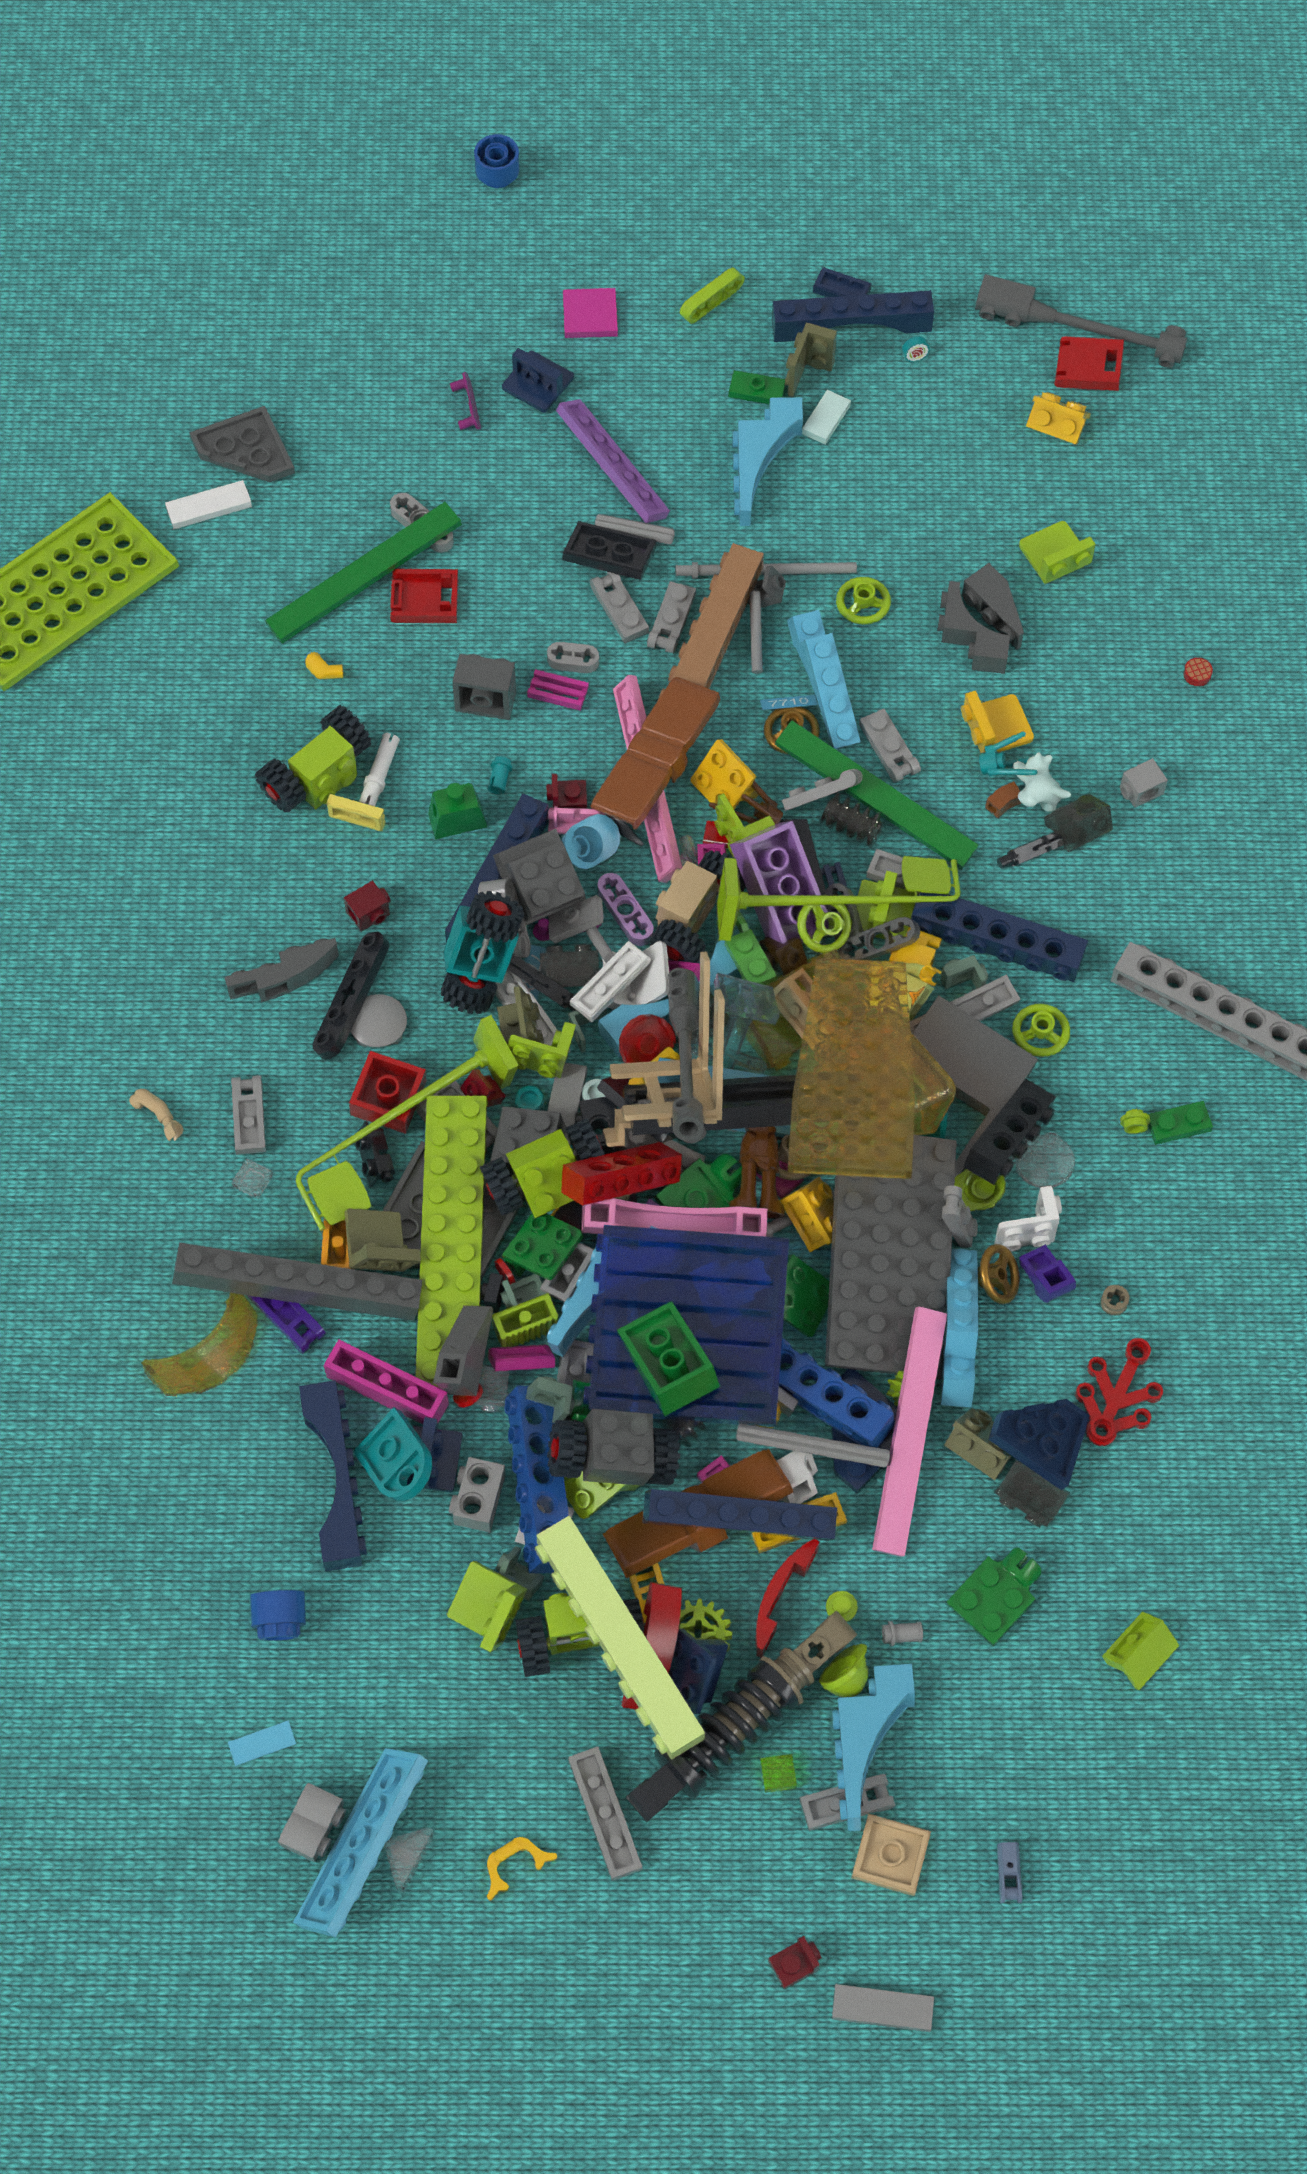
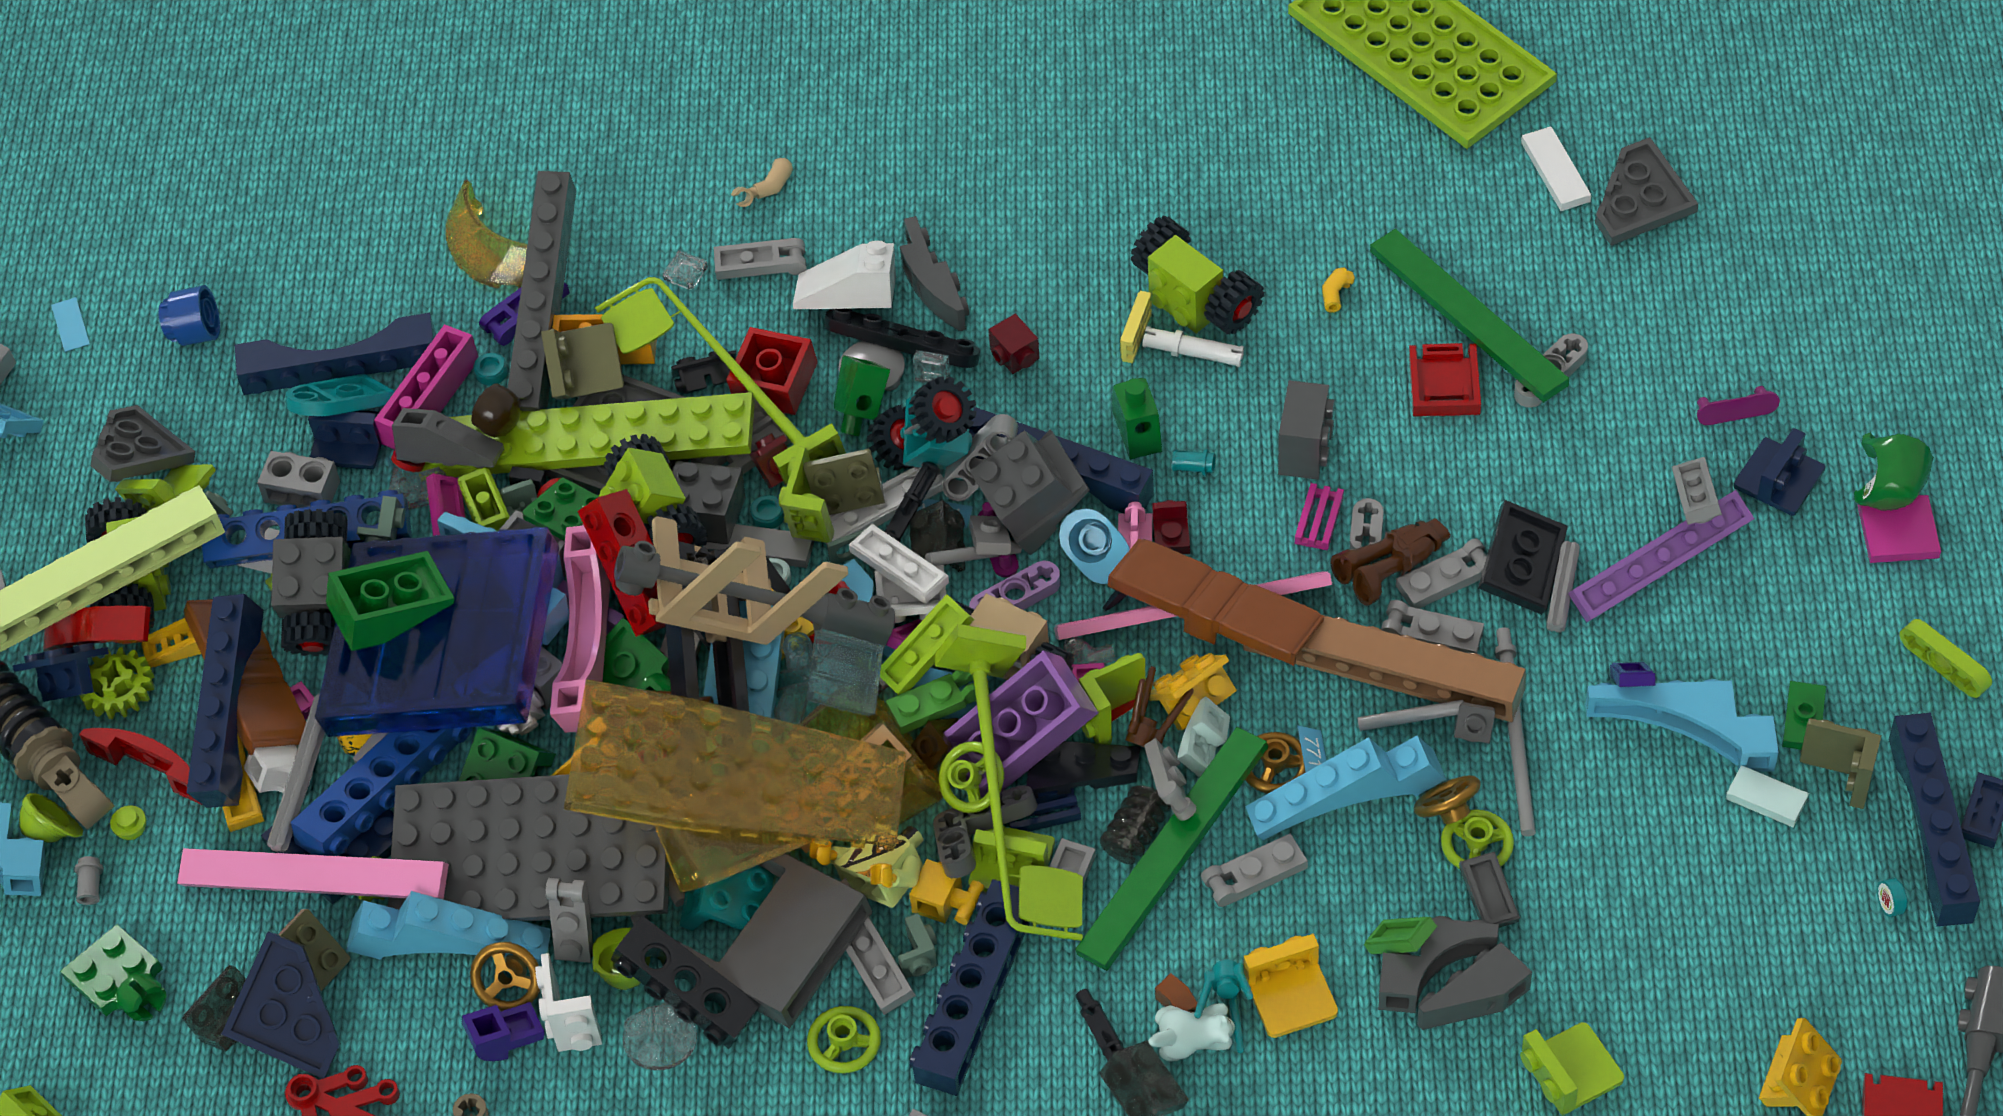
camera: 95 degrees right, 10 degrees down
(290, 1033) = (850, 280): none -> white slope
(355, 1336) = (490, 369): none -> teal tile
(388, 969) = (930, 366): none -> clear tile
(419, 1017) = (859, 380): none -> green torso
(437, 1642) = (137, 445): none -> dark grey plate
(440, 1301) = (496, 411): none -> dark brown hair
(554, 289) = (1901, 471): none -> green piece
(561, 426) = (1696, 491): none -> light grey plate
(601, 631) = (1407, 547): none -> reddish brown piece
(698, 938) = (918, 650): none -> lime plate
(729, 483) = (1632, 674): none -> dark purple tile
(766, 770) = (1202, 735): none -> light aqua slope
(837, 611) = (1448, 799): none -> pearl gold piece
(910, 593) = (1489, 890): none -> dark grey tile
(957, 644) = (1400, 935): none -> bright green tile

